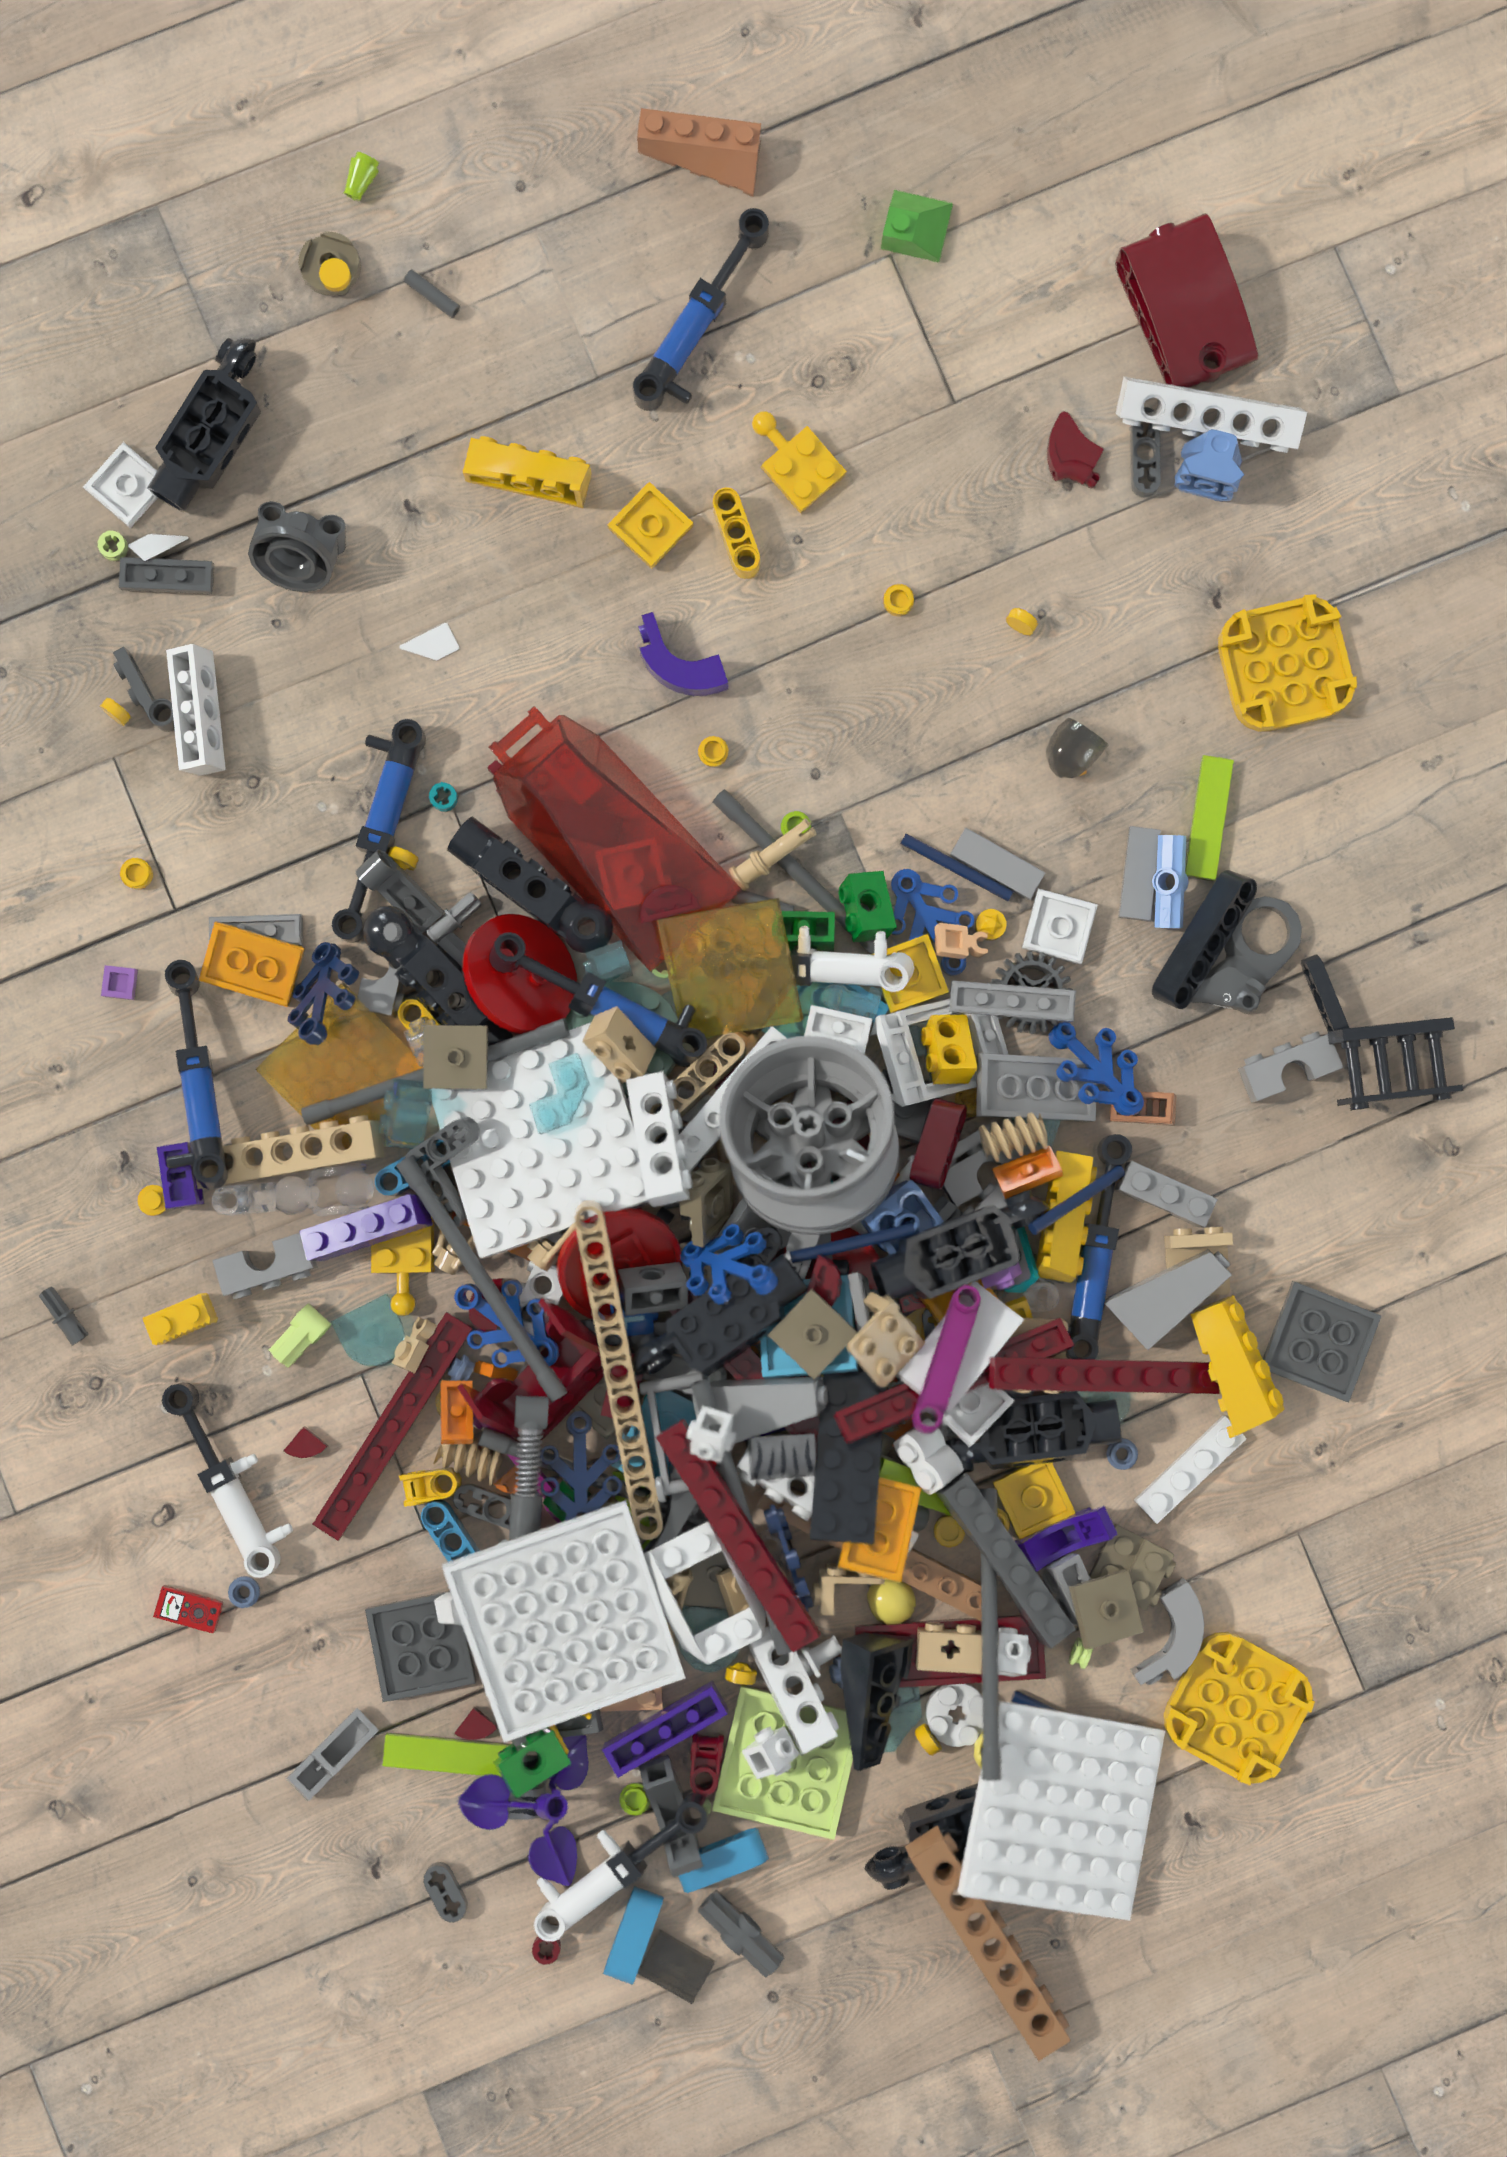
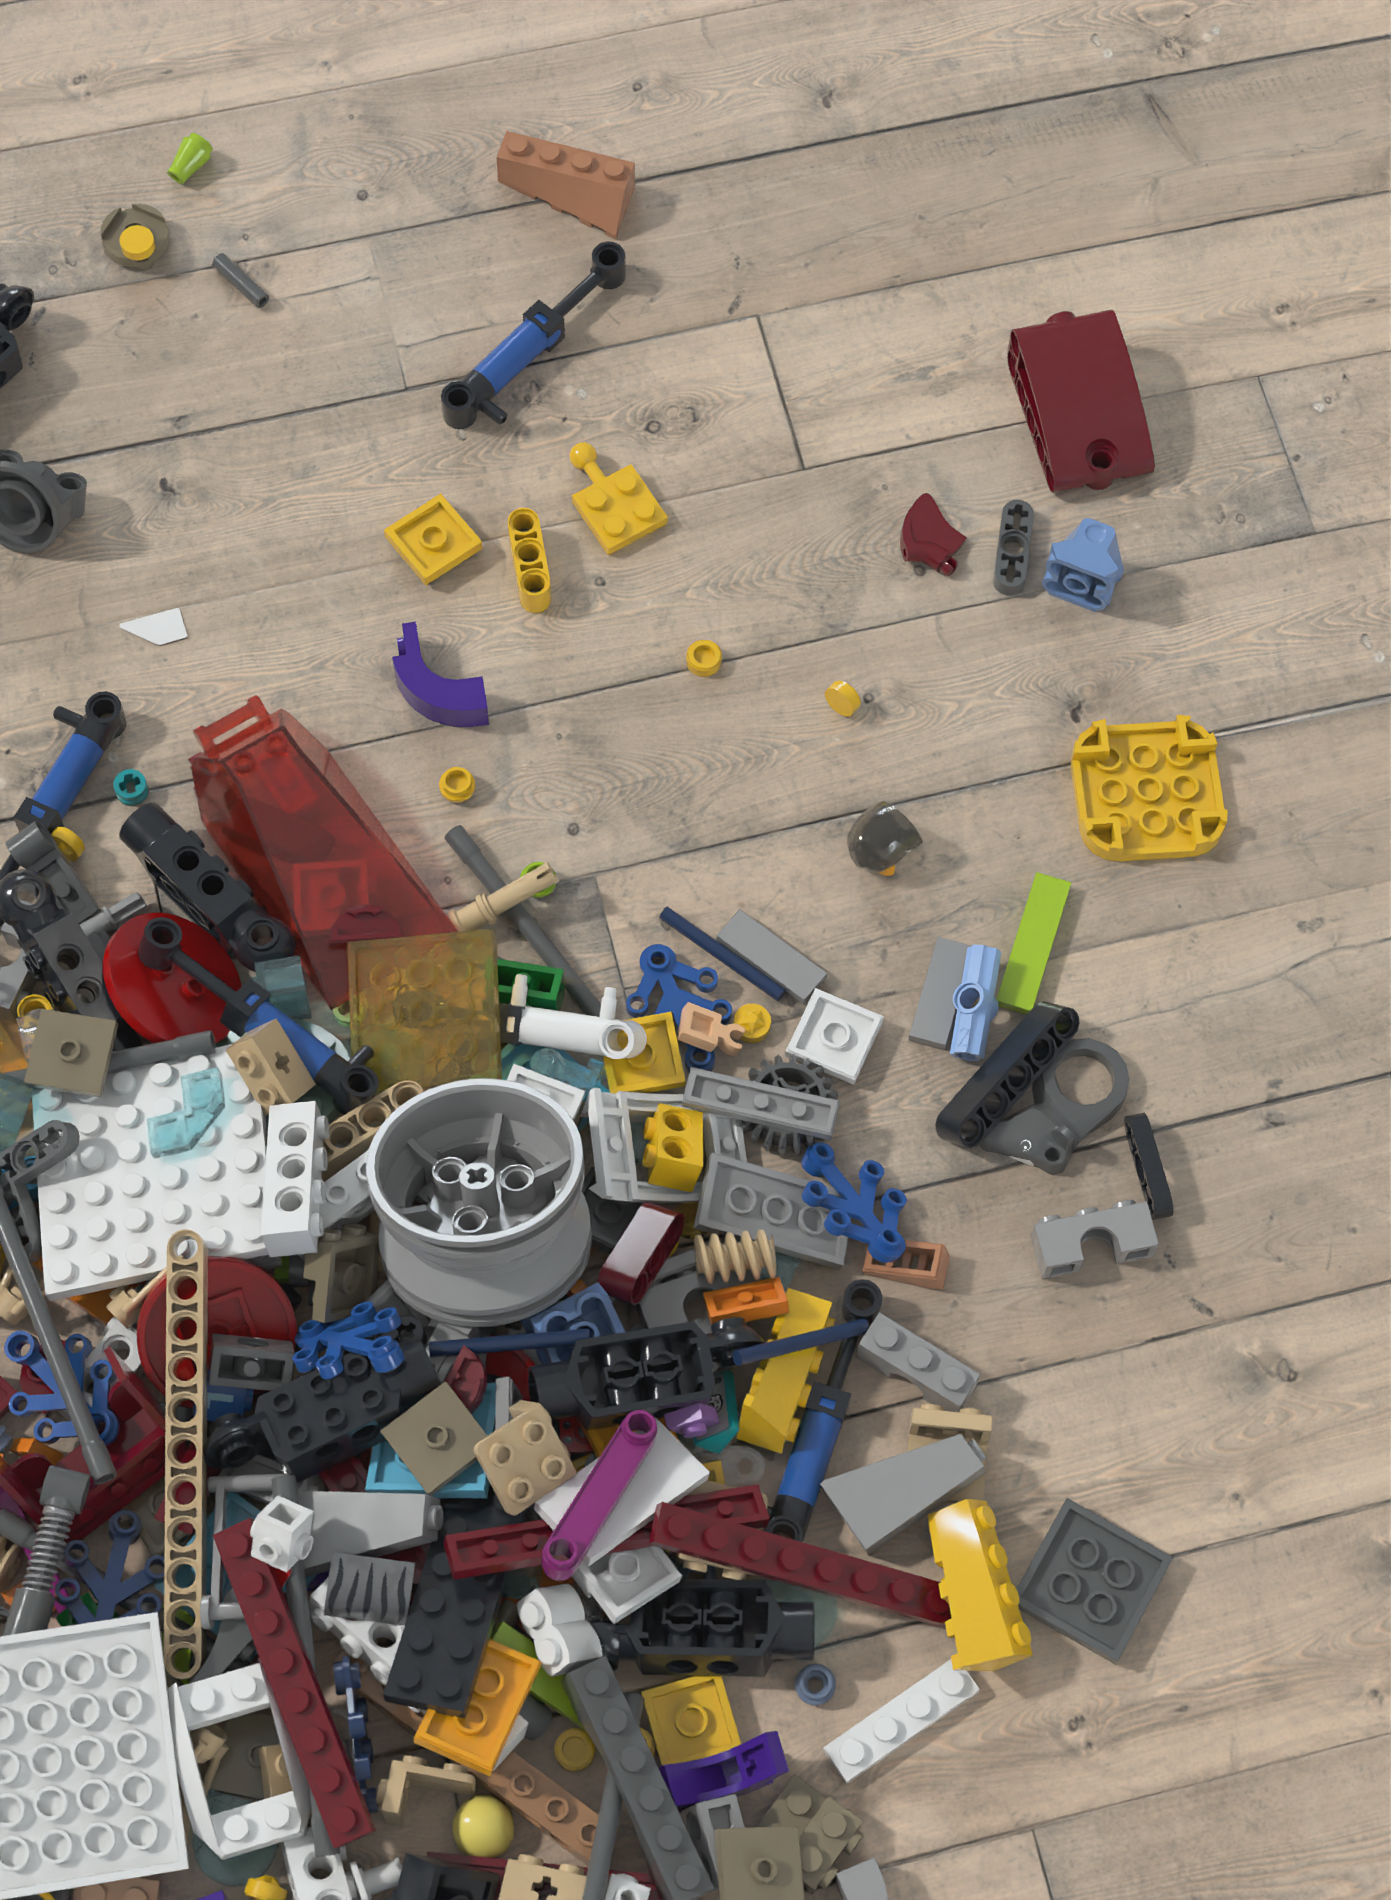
camera: 10 degrees right, 20 degrees down
(527, 472) = (305, 466): yellow wedge -> none
(872, 891) = (602, 963): green brick -> none
(916, 226) = (788, 290): bright green slope -> none
(1288, 419) = (1179, 529): white brick -> none
(1405, 1035) = (1242, 1216): black fence -> none

